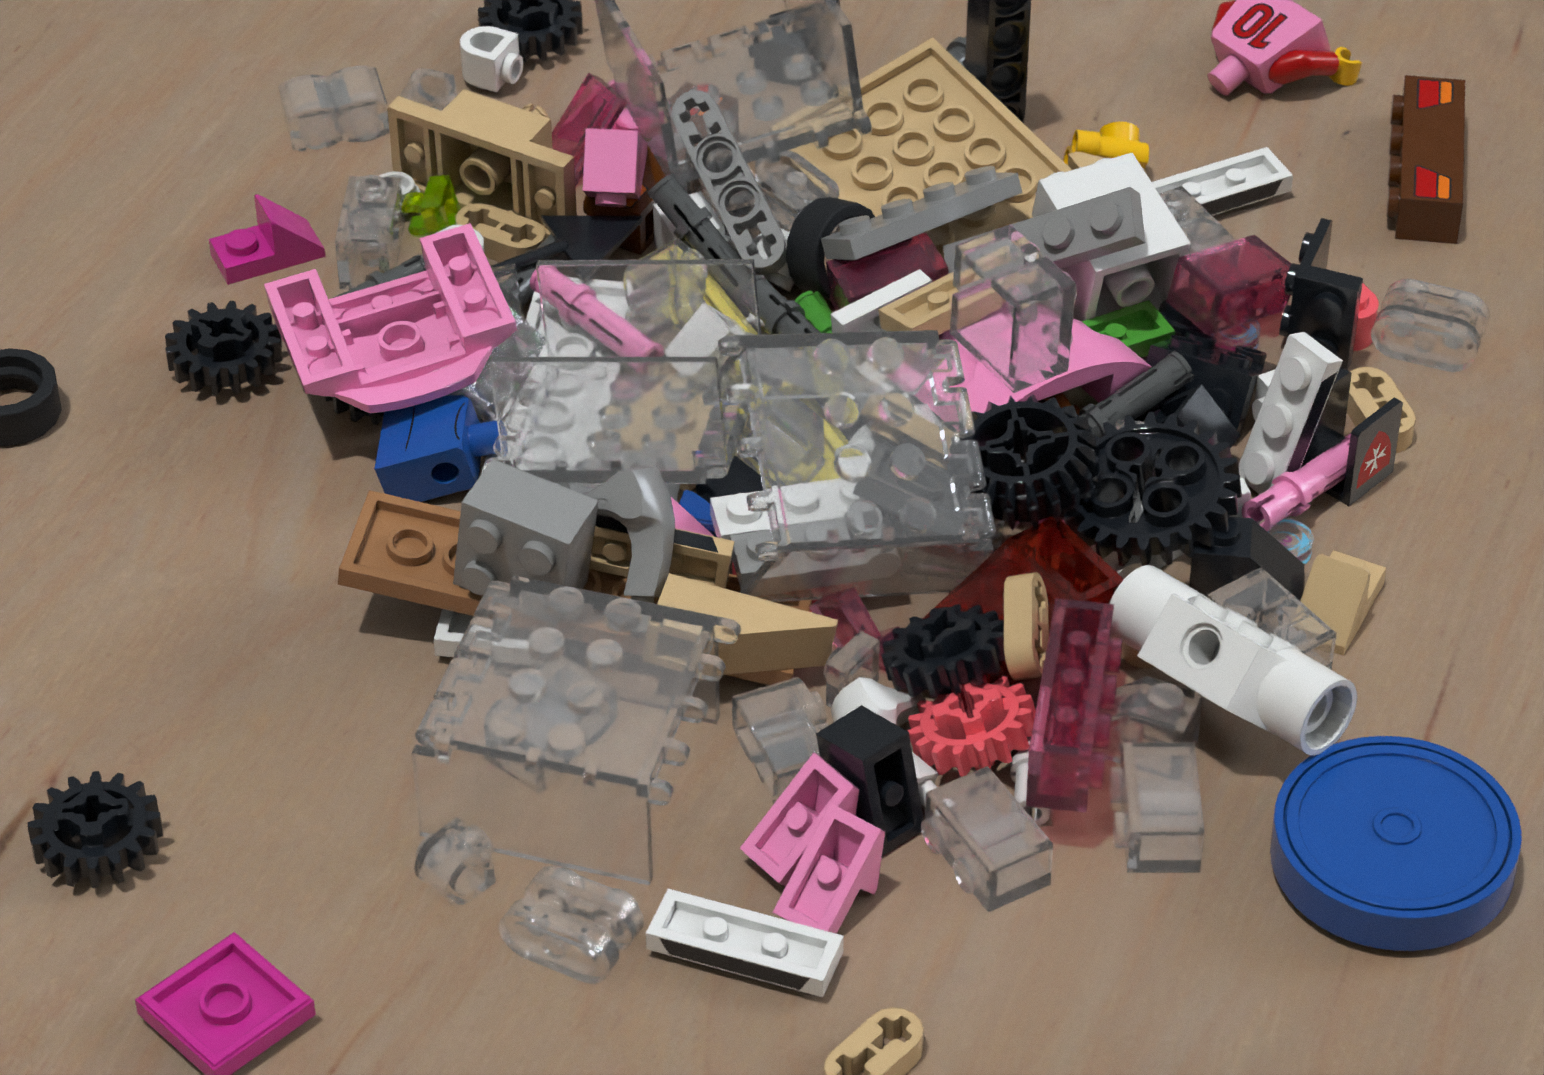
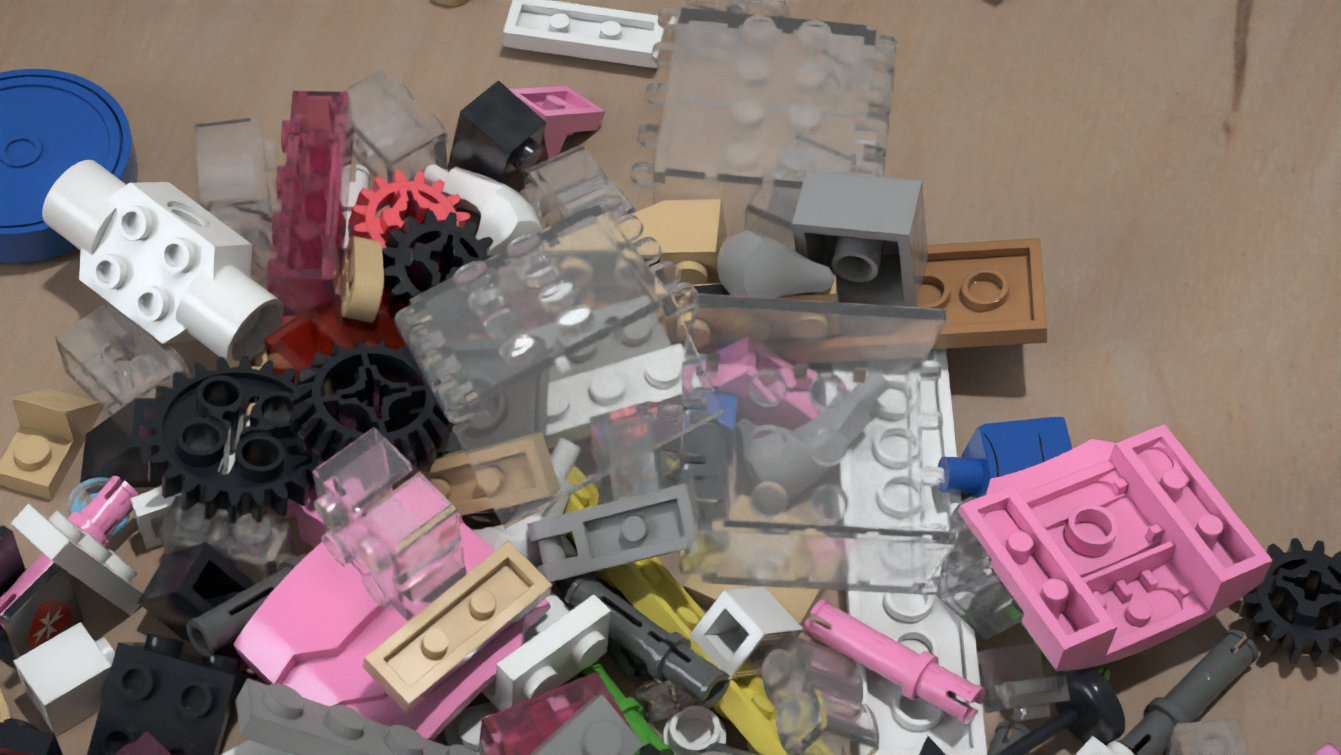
camera: 170 degrees right, 10 degrees up
(95, 829) = (1156, 55): black gear -> none
(832, 870) = (517, 68): bright pink slope -> none

